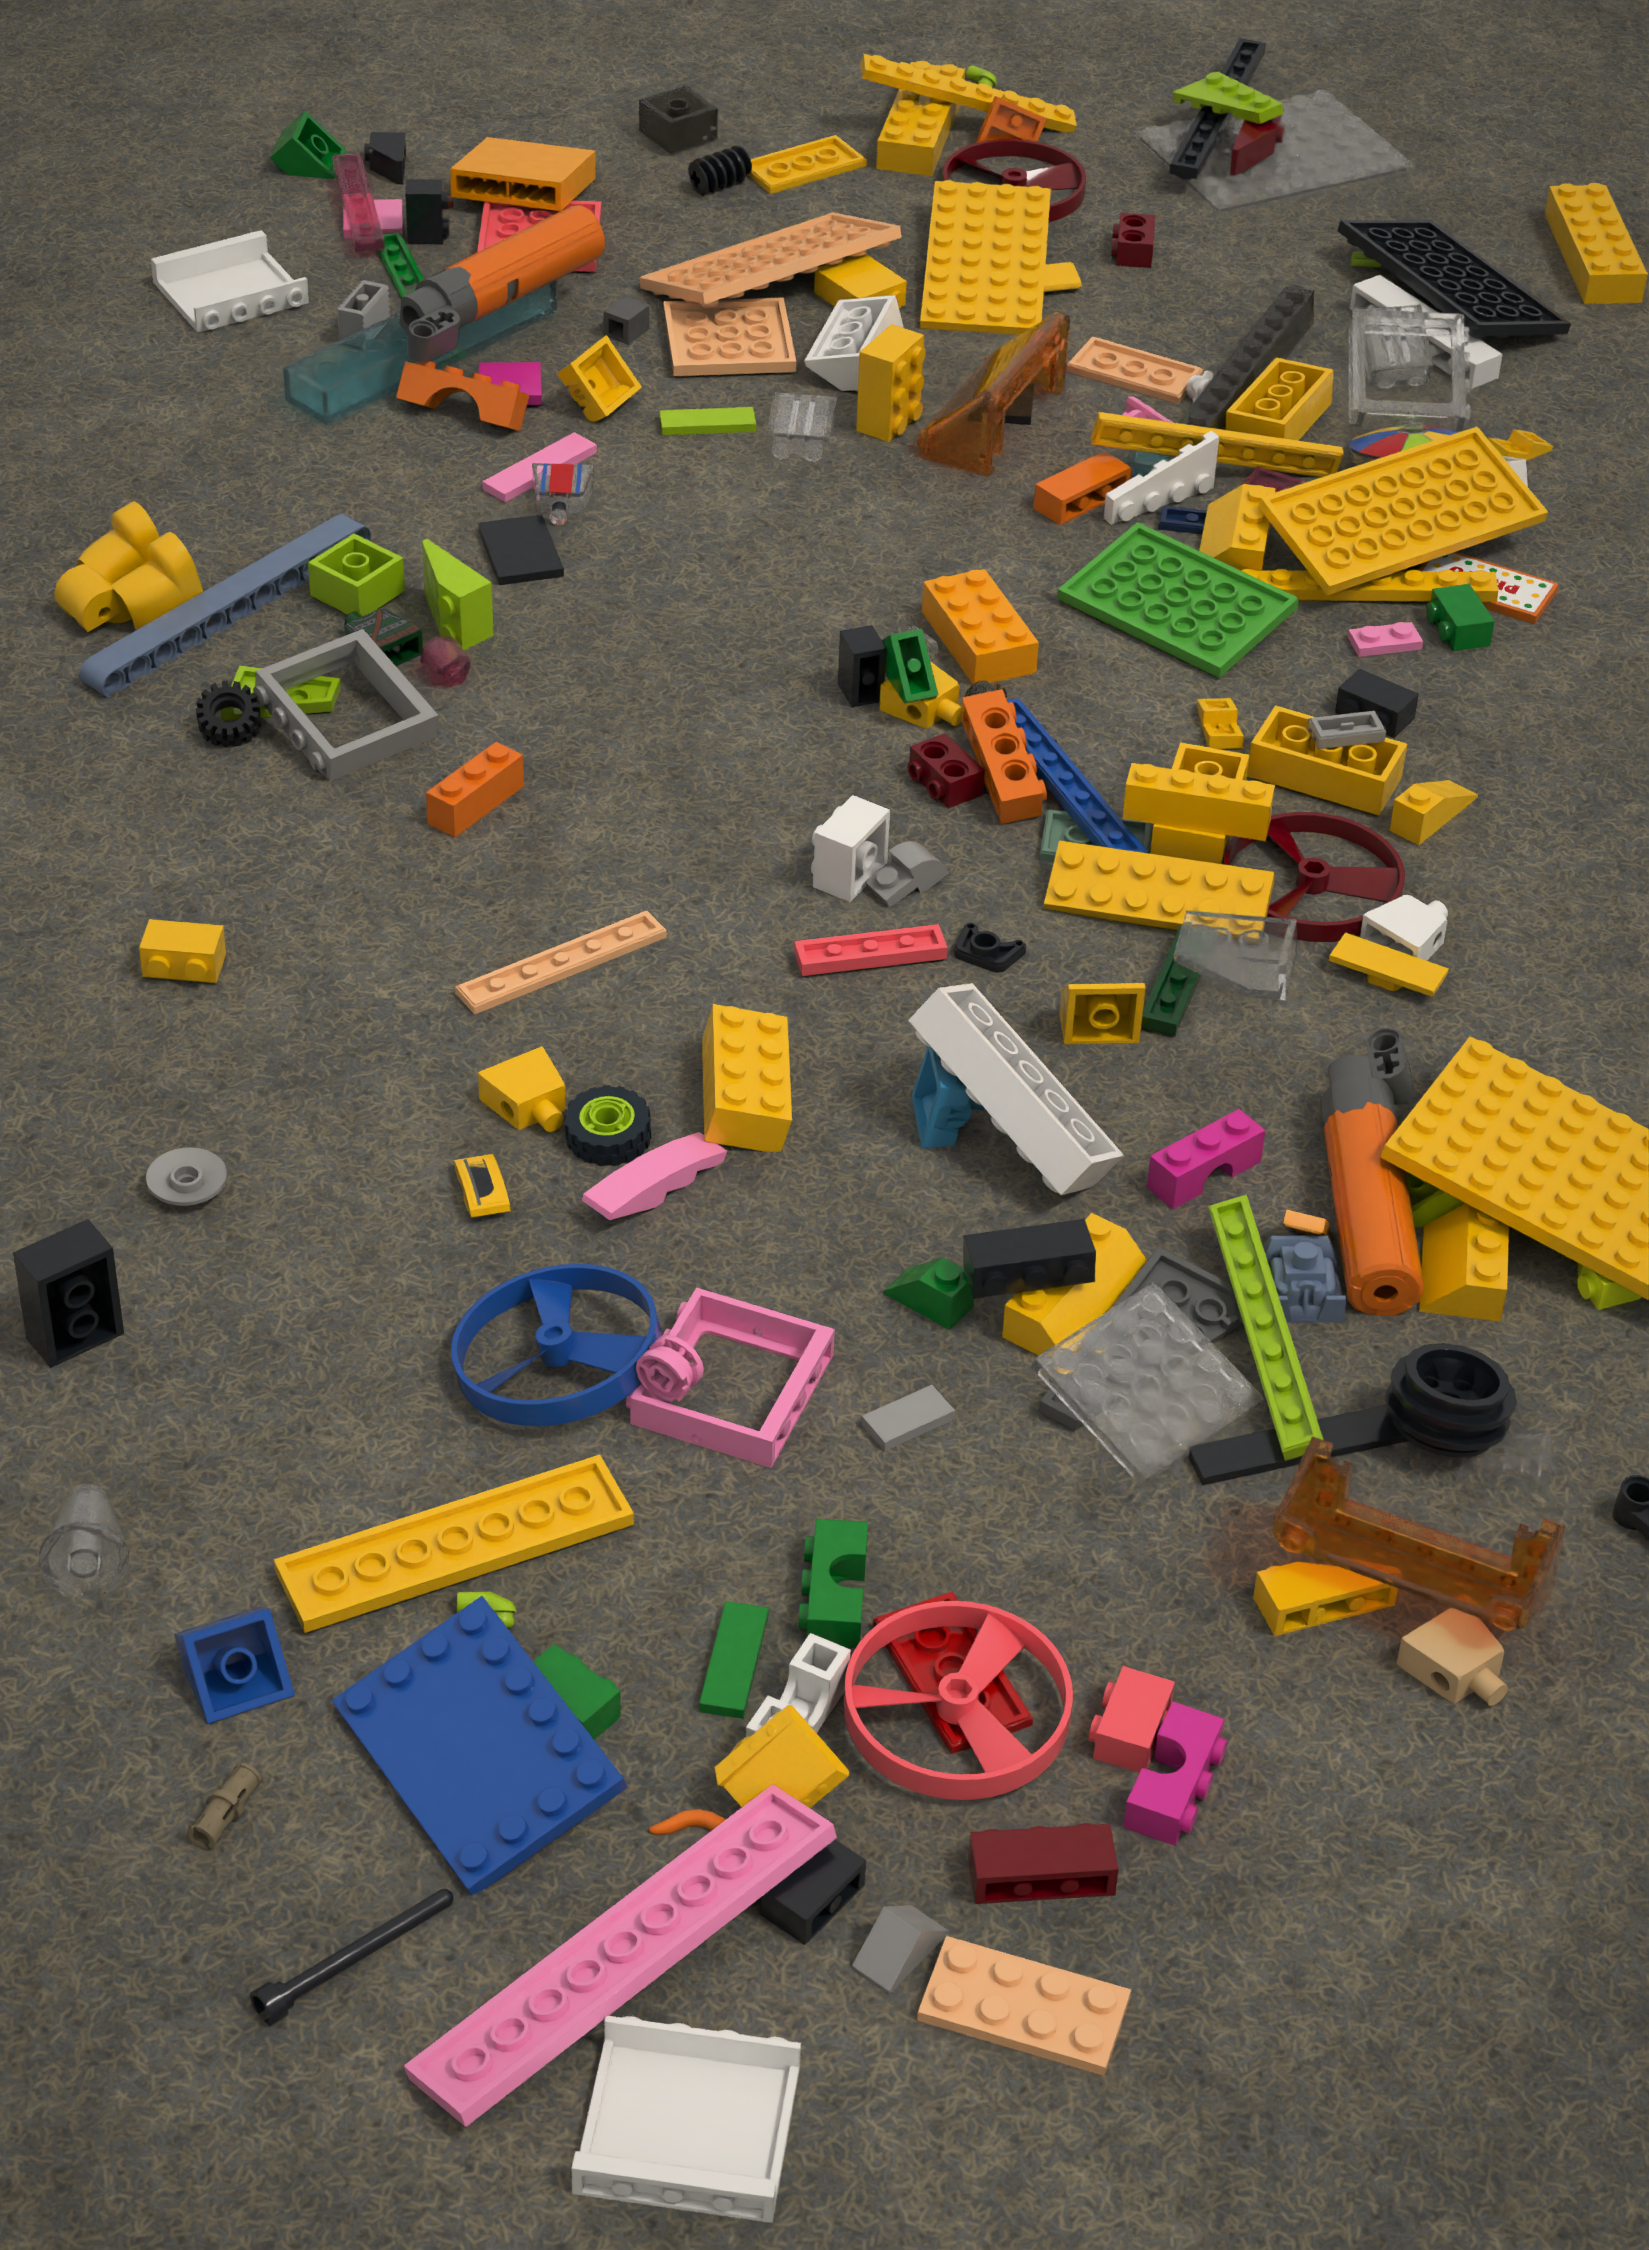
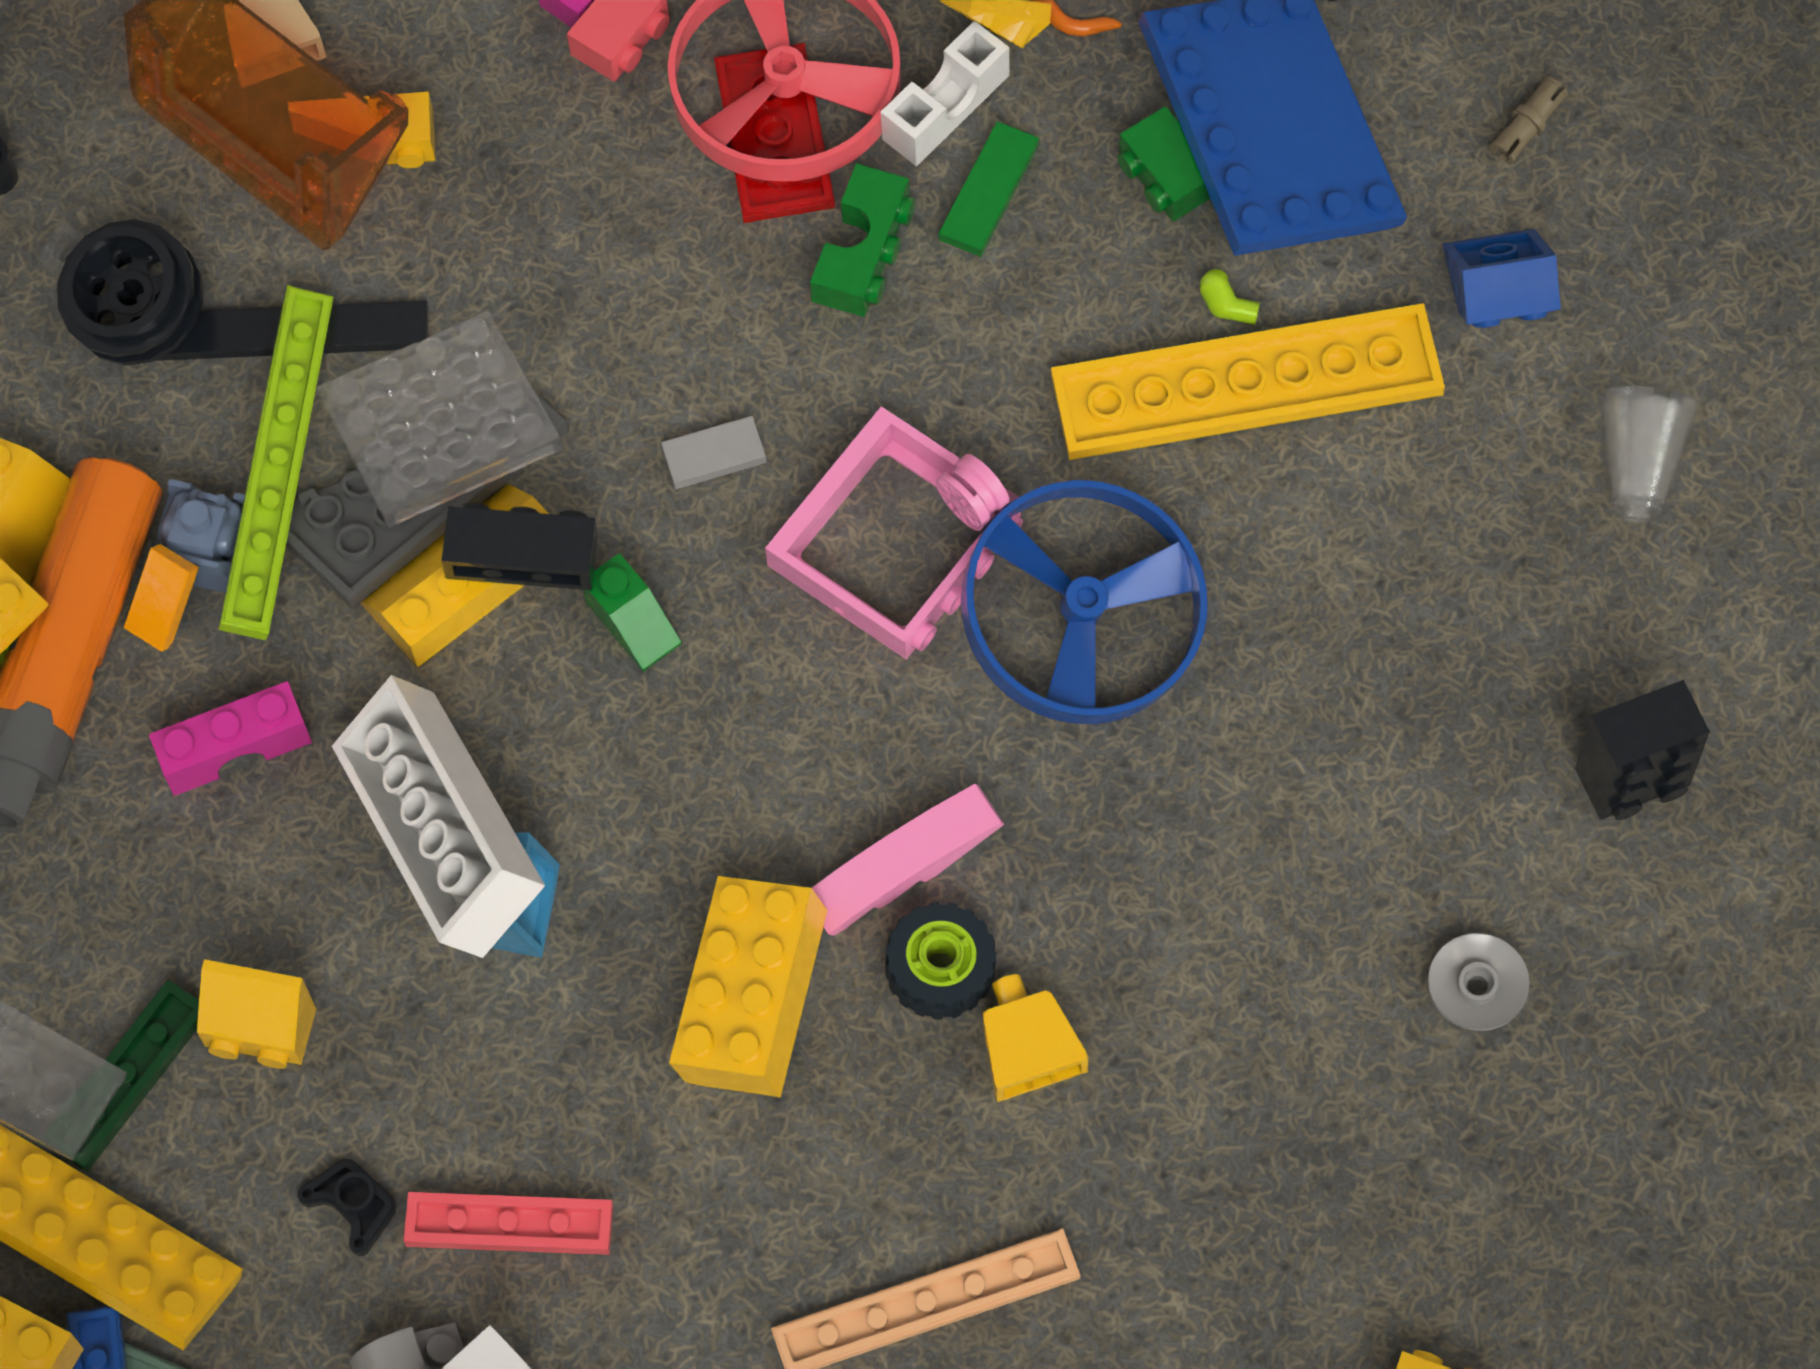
camera: 160 degrees left, 25 degrees up
(482, 1185) = (1116, 900): yellow slope -> none

